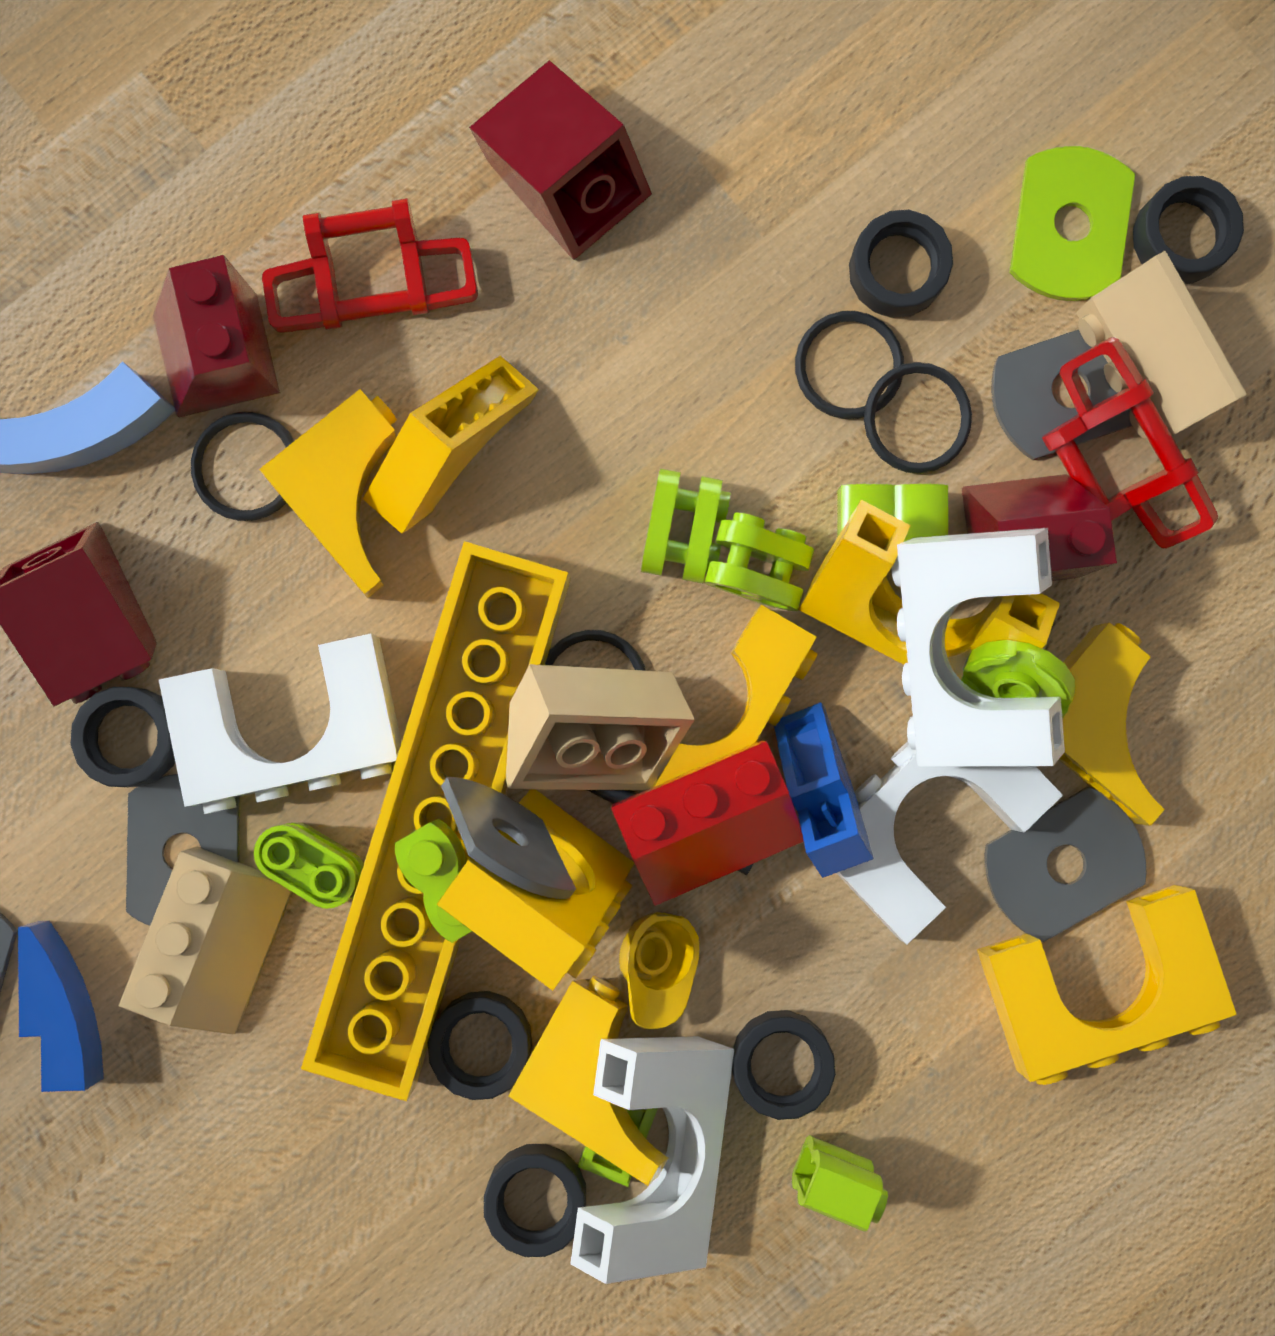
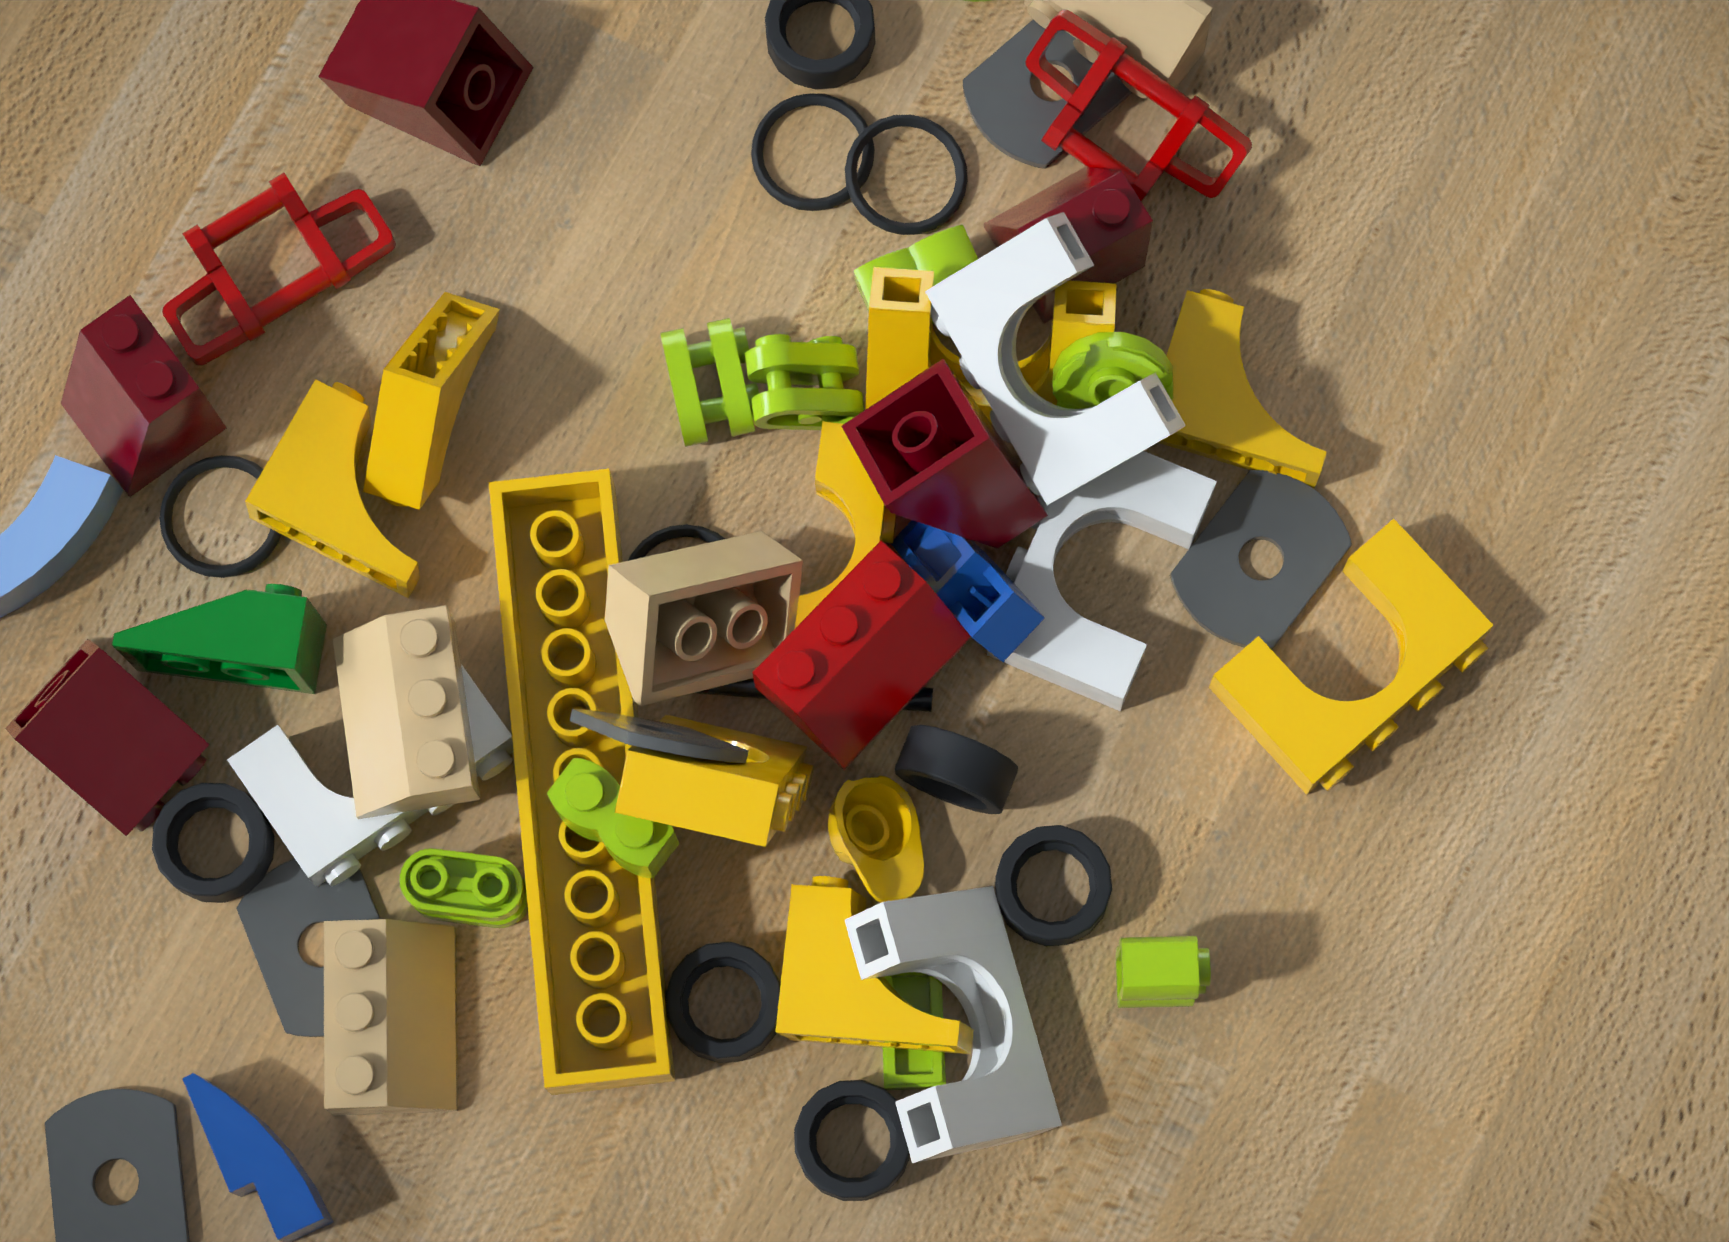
camera: 15 degrees left, 10 degrees down
(230, 593) = (239, 639): none -> green slope
(316, 710) = (405, 713): none -> tan slope
(745, 944) = (956, 769): none -> black tyre
(845, 688) = (943, 461): none -> dark red slope

